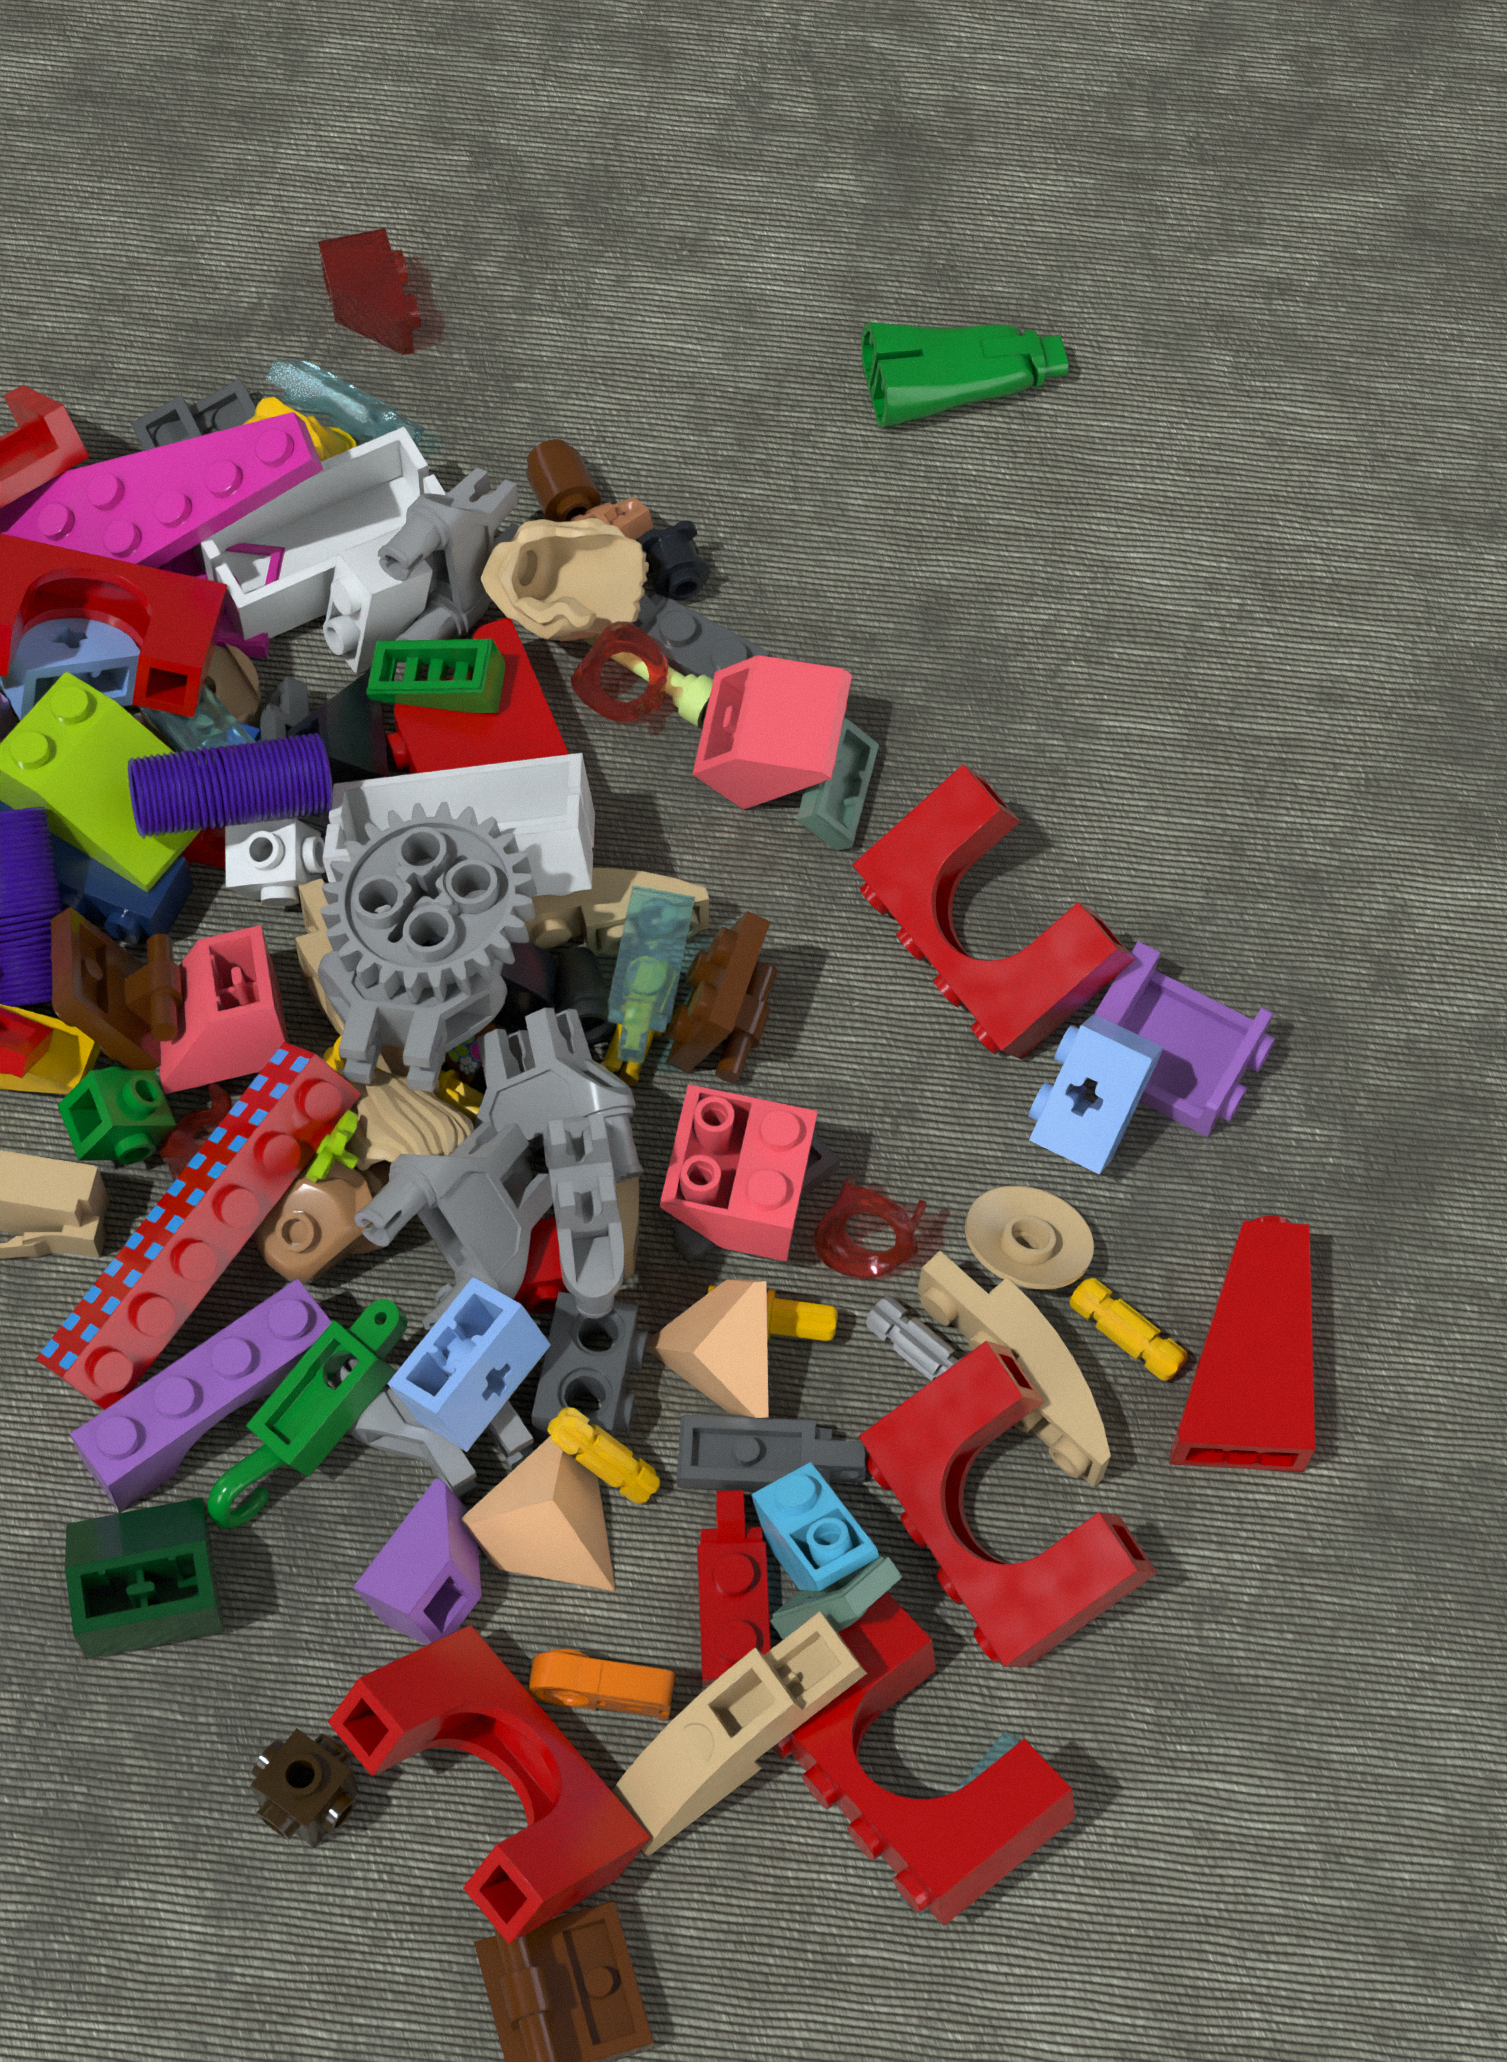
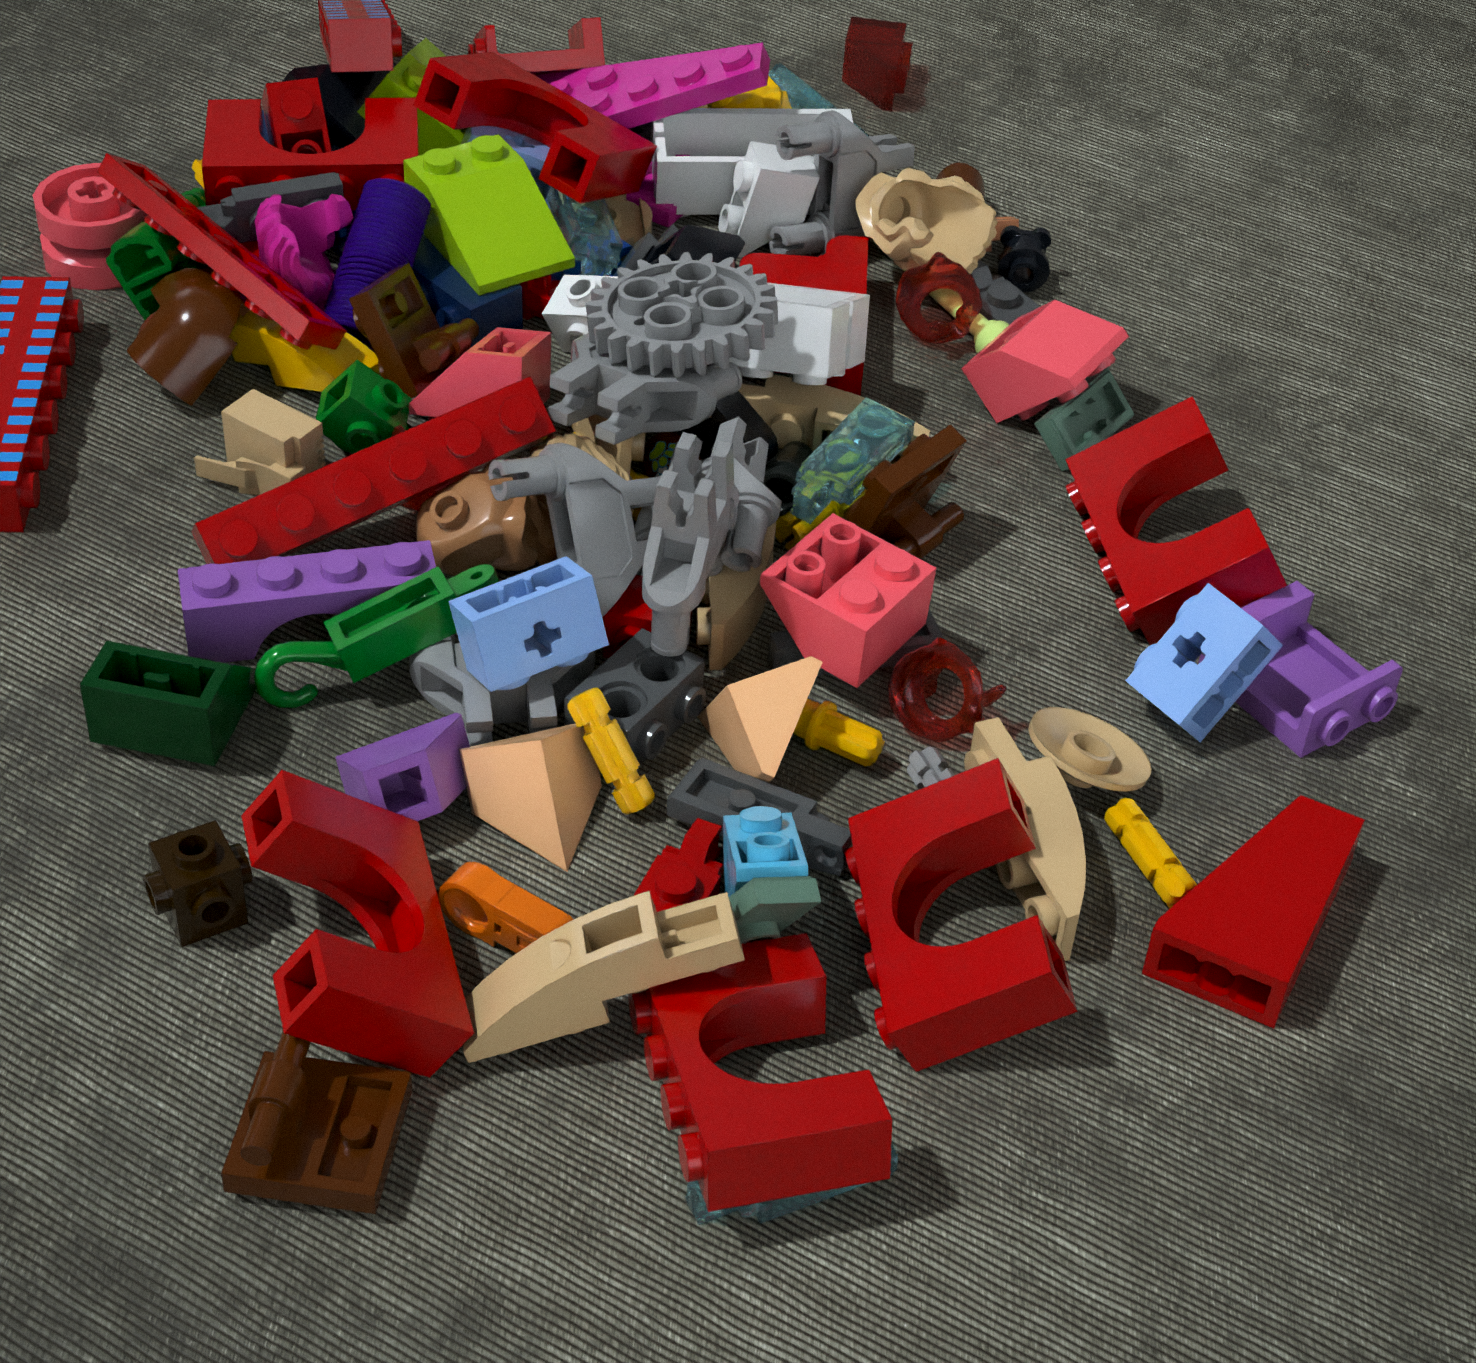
camera: 25 degrees right, 20 degrees down
(236, 788) = (584, 228): dark purple piece -> none
(333, 1148) = (505, 447): lime plant -> none
(460, 694) = (791, 243): green slope -> none
(935, 369) = (1297, 218): green piece -> none

